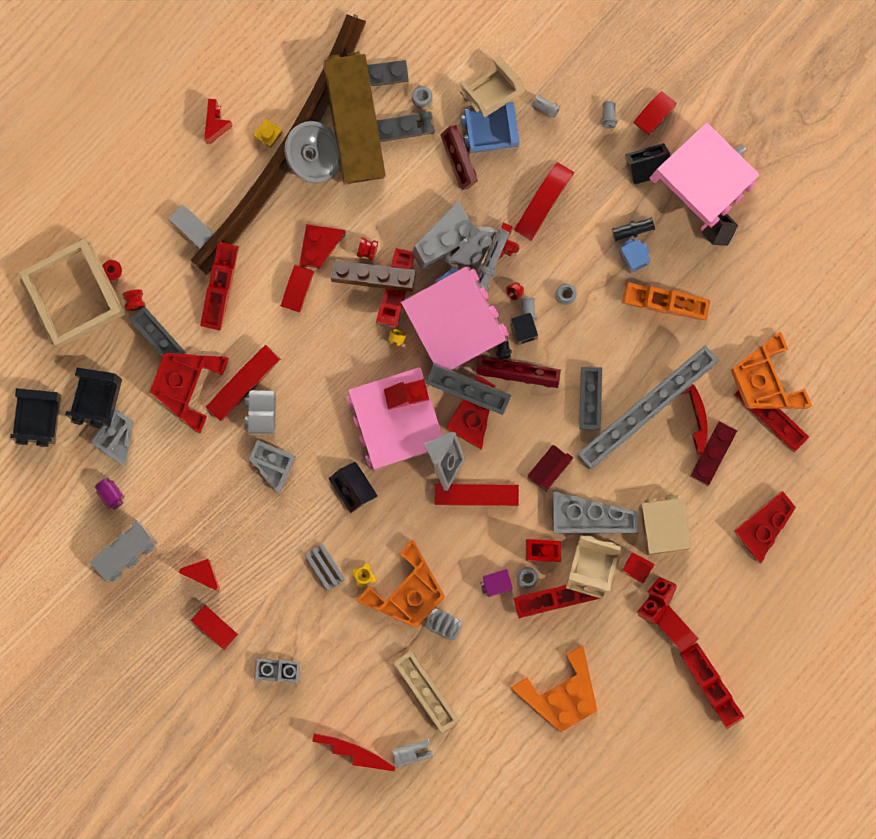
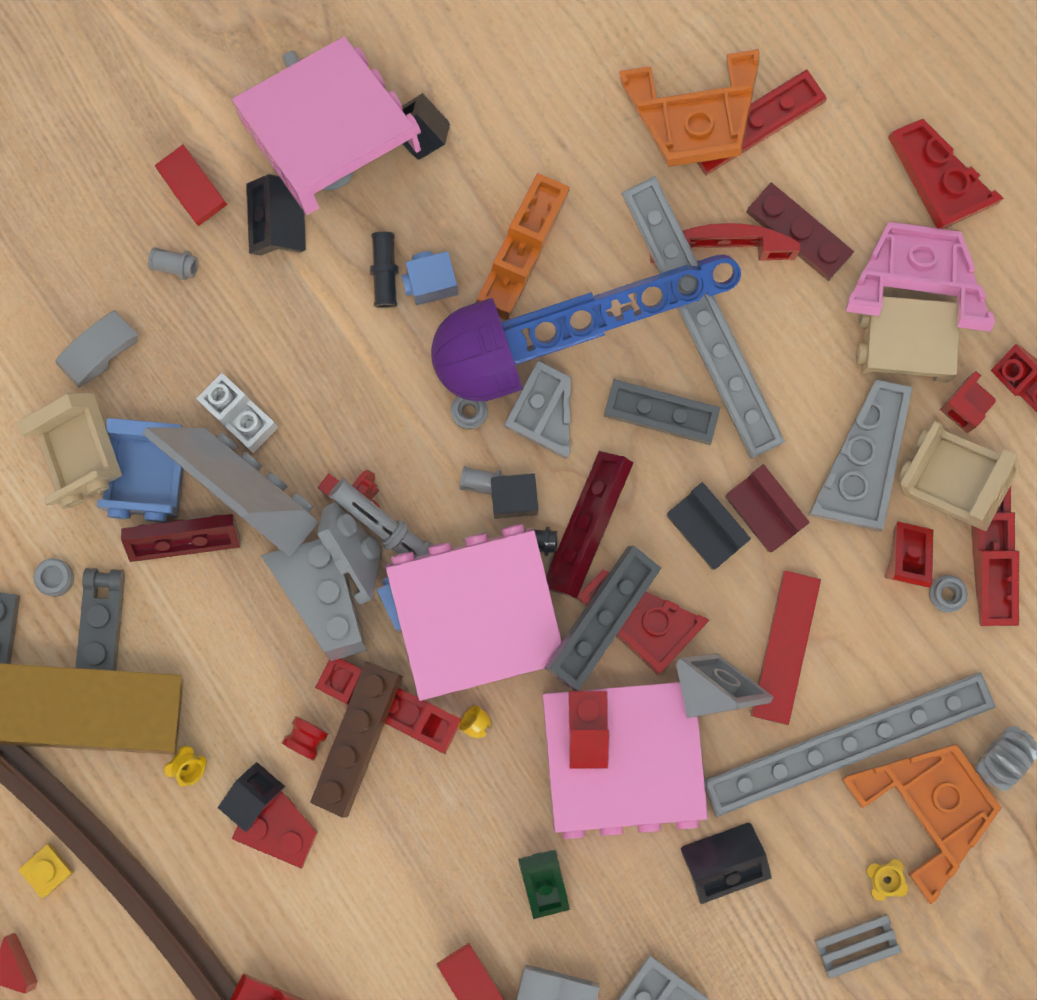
camera: 80 degrees left, 0 degrees up
(297, 288) = (345, 882): red slope -> none
(320, 391) = (544, 884): none -> dark green slope
(322, 148) = (98, 779): light grey dish -> none
(331, 227) = (250, 796): none -> black panel
(338, 195) = (185, 767): none -> yellow plate
(432, 540) = (848, 744): none -> light grey tile
(493, 177) = (239, 483): none -> light grey slope
(496, 583) = (950, 648): magenta brick -> none
(514, 291) = (438, 502): red hinge -> none
(532, 438) = (708, 526): none -> black panel
(534, 170) = (237, 412): none -> white slope
(543, 201) = (296, 409): red slope -> none
(546, 107) = (131, 365): light grey pin -> none
(552, 86) = (95, 347): none -> light grey slope
(576, 334) = (544, 410): none -> light grey wing
(596, 291) = (479, 353): none -> piece
(711, 522) = (925, 262): none -> bright pink wing

